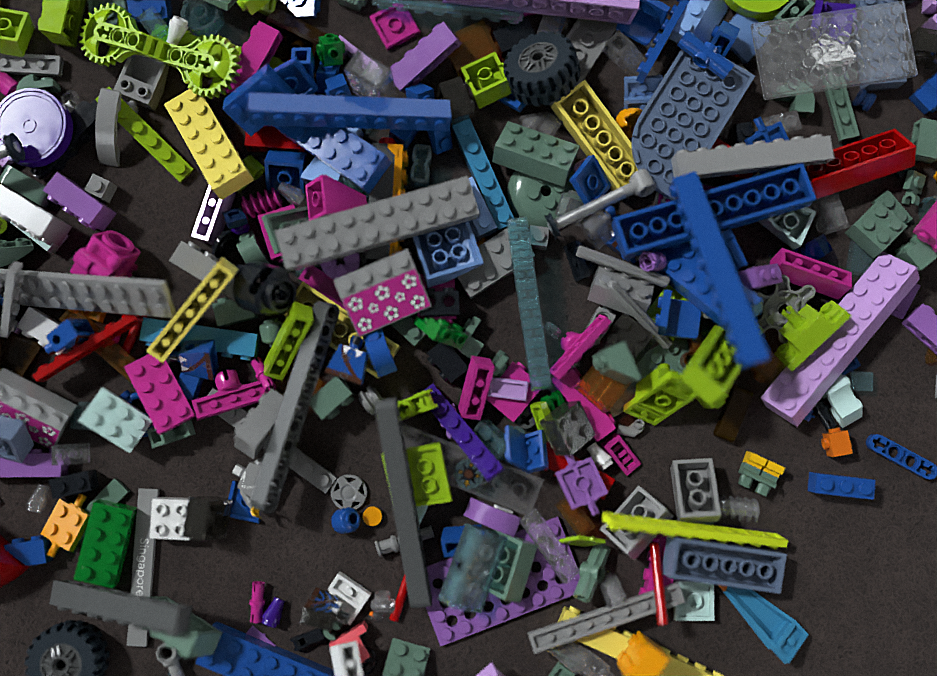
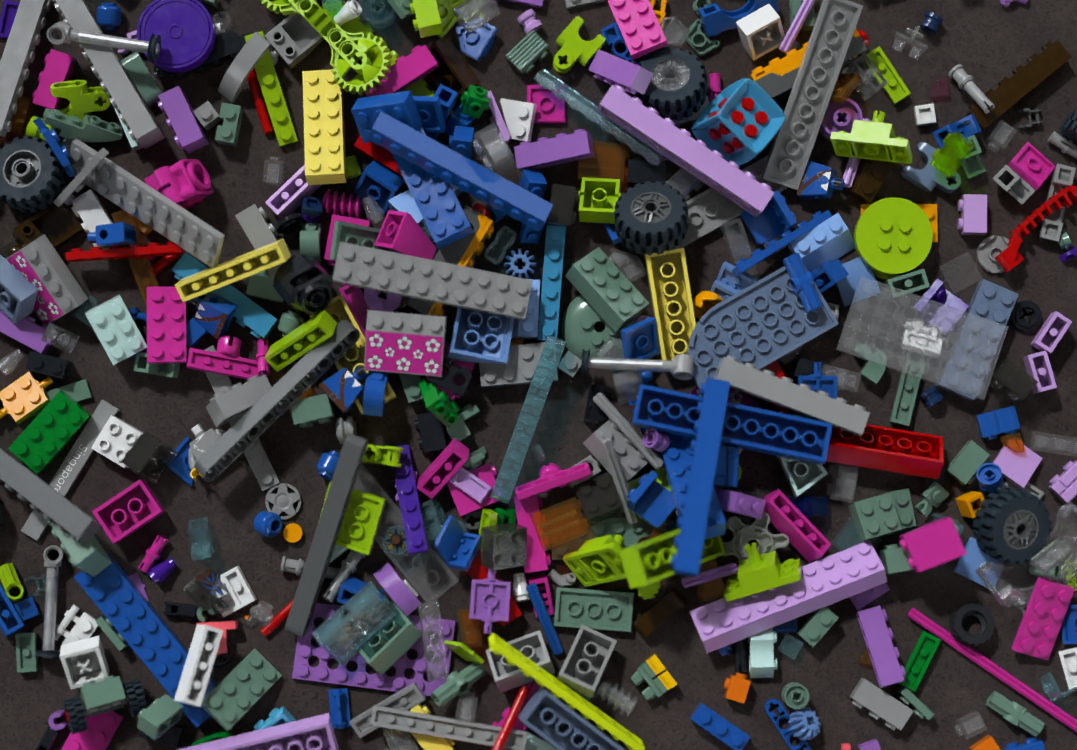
camera: 30 degrees right, 0 degrees up
(127, 191) = (231, 117): none -> sand green brick
(141, 153) = (259, 103): none -> red piece
(186, 206) = (274, 171): none -> clear brick
(214, 576) = (128, 511): none -> dark pink brick
(293, 566) = (201, 538): none -> clear light blue brick
(371, 439) = (327, 465): none -> blue head
(377, 46) = (519, 118): none -> white wing
(437, 519) = (348, 566): none -> light grey pin
(449, 167) = (525, 260): none -> medium blue gear
(497, 650) = (339, 708): none -> blue hinge
(549, 614) = (403, 700): none -> light grey plate
(616, 364) = (573, 512): sand green slope -> none
(635, 472) = (544, 618): none -> blue axle
(673, 441) = (593, 609): none -> sand green plate
(771, 346) = (710, 575): none -> medium lavender axle
(877, 351) = (817, 626): none -> sand green brick
(891, 422) = (795, 695): none -> sand green wheel
(914, 442) = (804, 723): none -> medium blue gear

